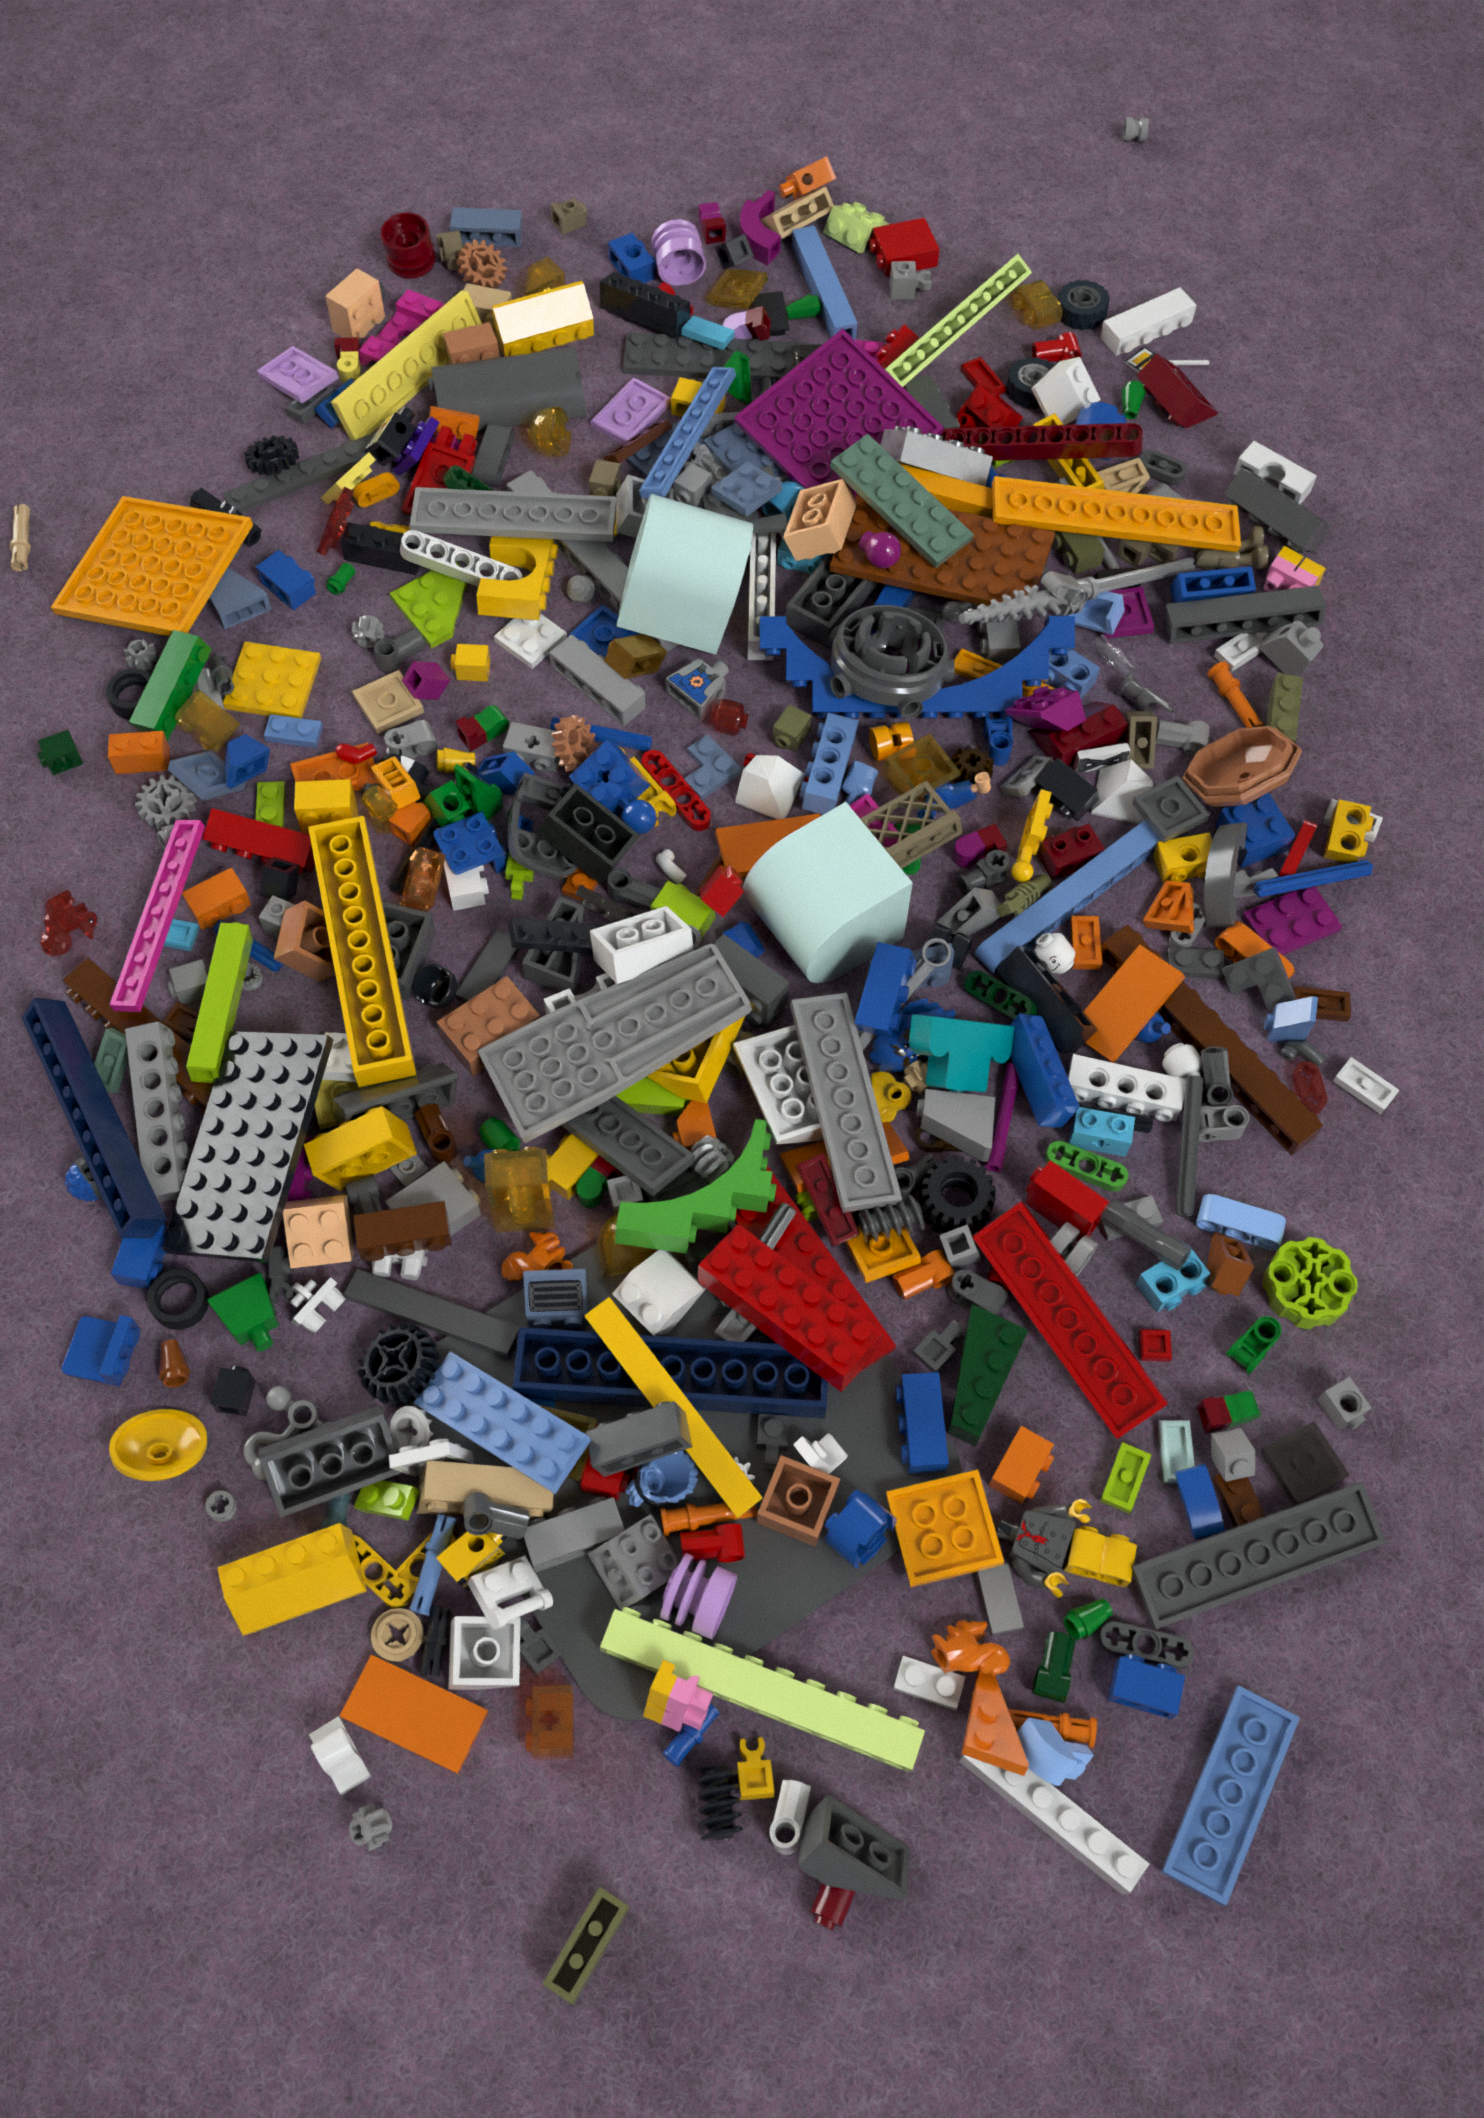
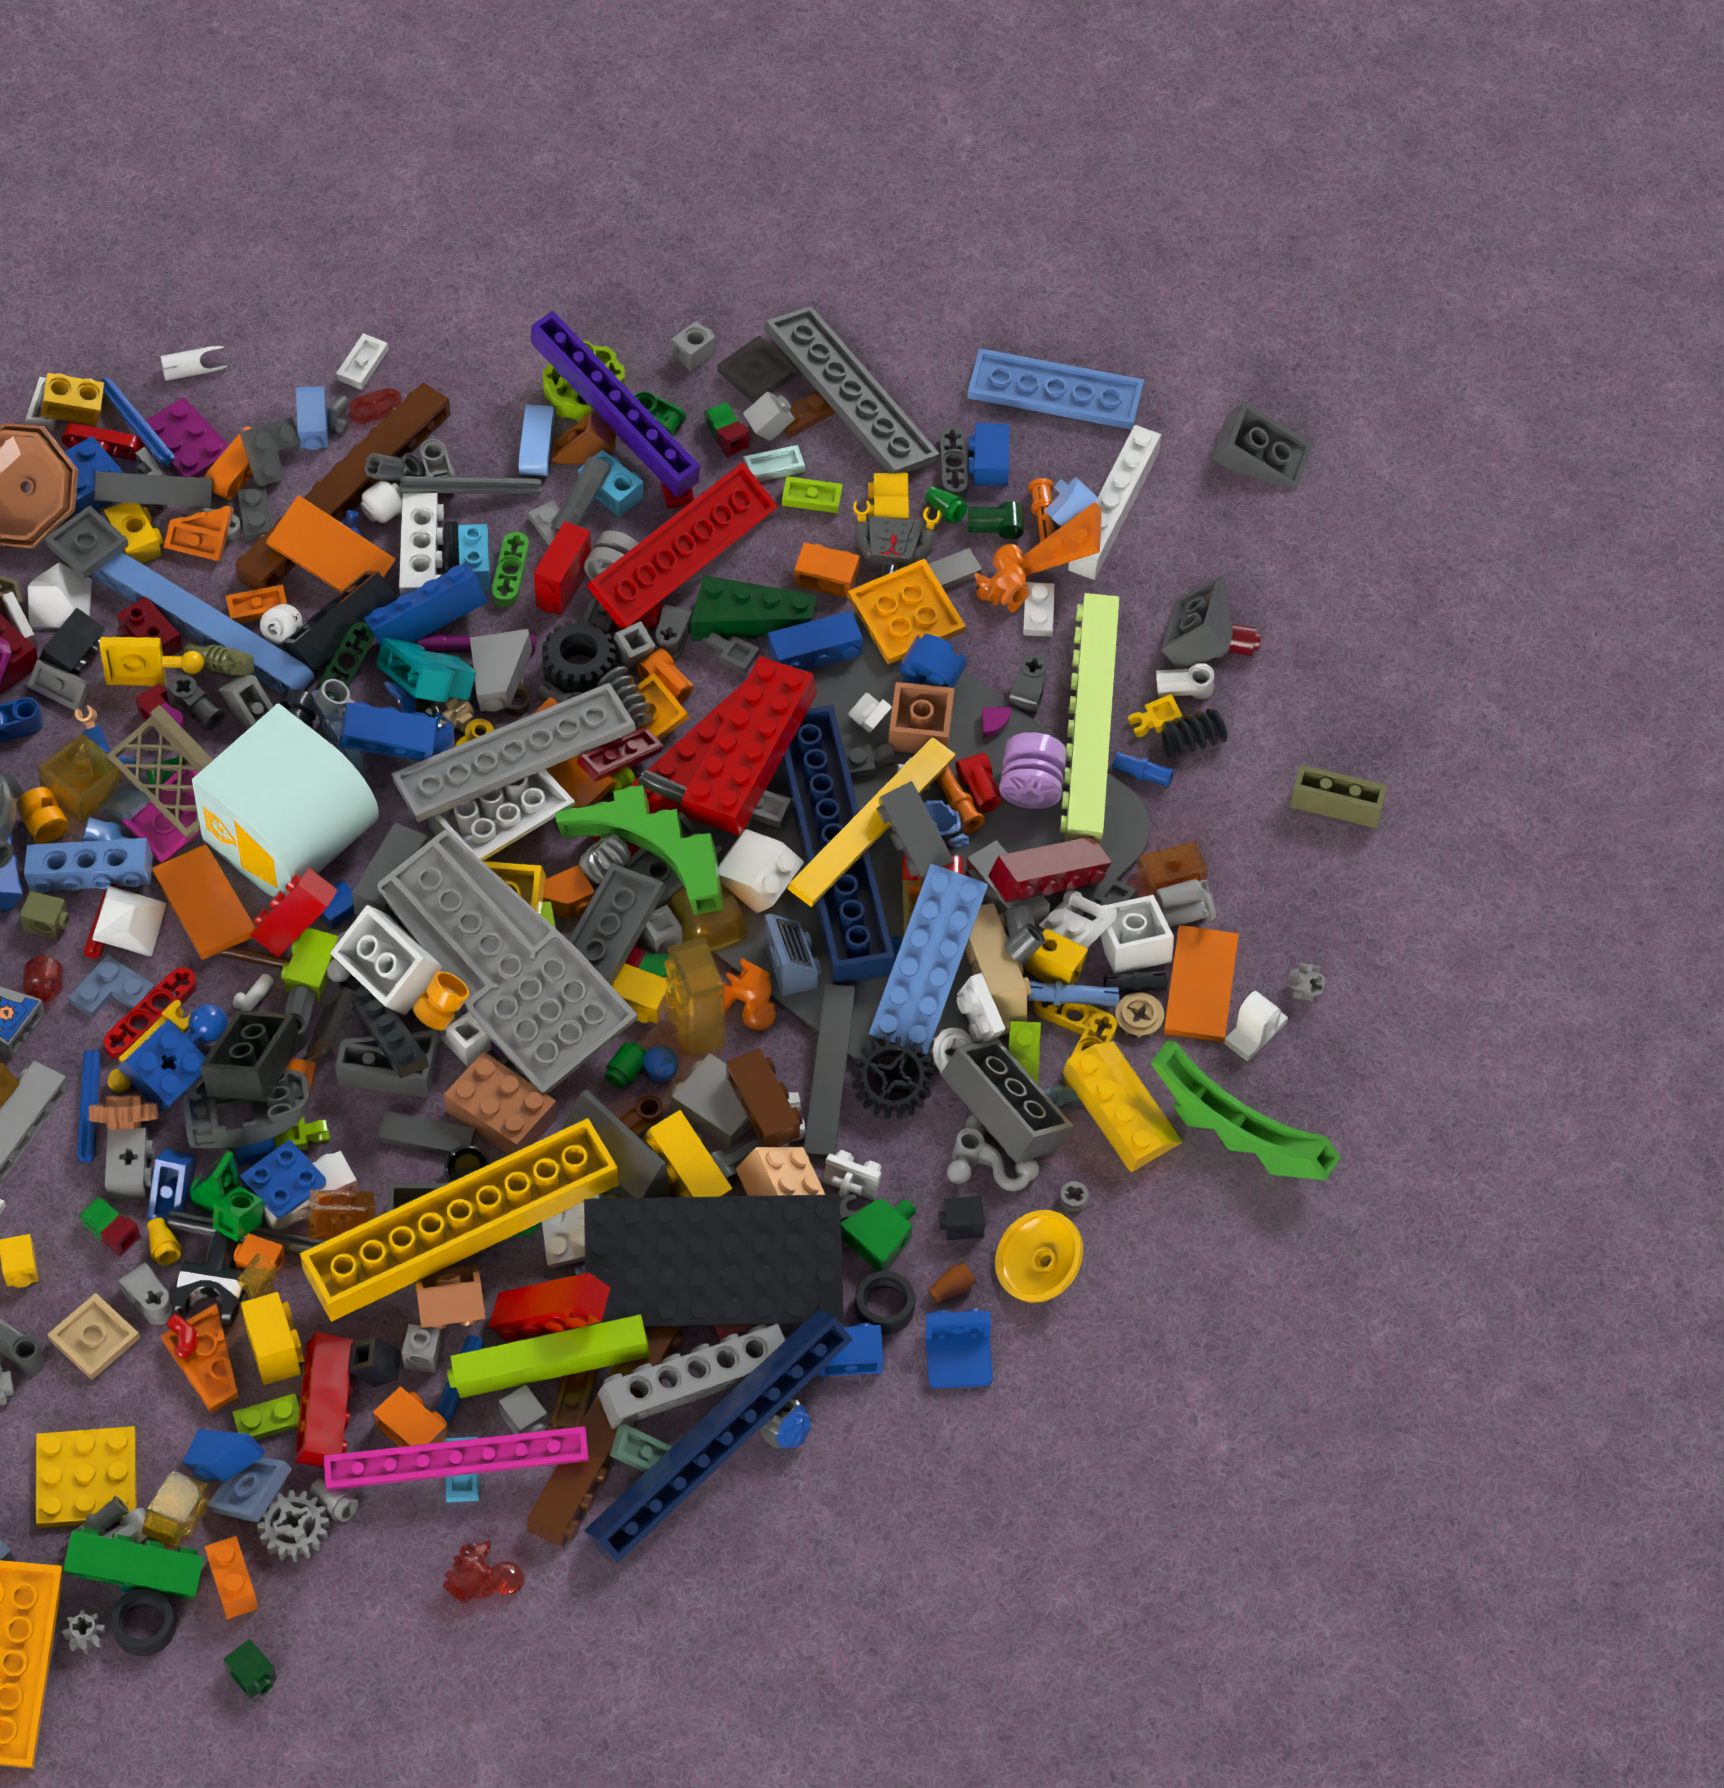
camera: 105 degrees left, 5 degrees down
(217, 1695) = (1242, 1129): none -> bright green arch
(258, 1005) = (549, 1307): none -> red brick
(293, 731) = (155, 1429): medium blue plate -> none
(397, 783) = (218, 1259): light orange slope -> none
(425, 680) = (60, 1296): magenta brick -> none
(506, 1723) = (1186, 902): none -> light grey piece
(569, 1575) = (1049, 869): none -> brick
(585, 978) = (440, 1000): none -> light orange wheel
(635, 1562) = (1018, 827): light grey bracket -> none
(676, 1700) = (1126, 772): bright pink hips -> none
(788, 1585) = (994, 719): none -> magenta tile
(820, 1634) = (1029, 684): none -> dark grey piece
(879, 796) = (125, 803): none -> clear light blue tile
(972, 762) = (55, 734): dark brown gear -> none
(1100, 2026) = (1261, 447): none -> dark grey slope
(1199, 1501) = (817, 435): blue slope -> none
(1257, 1288) = (615, 404): none -> dark purple brick
(1331, 1004) = (279, 400): reddish brown plate -> none
(1382, 936) = (186, 363): none -> white piece

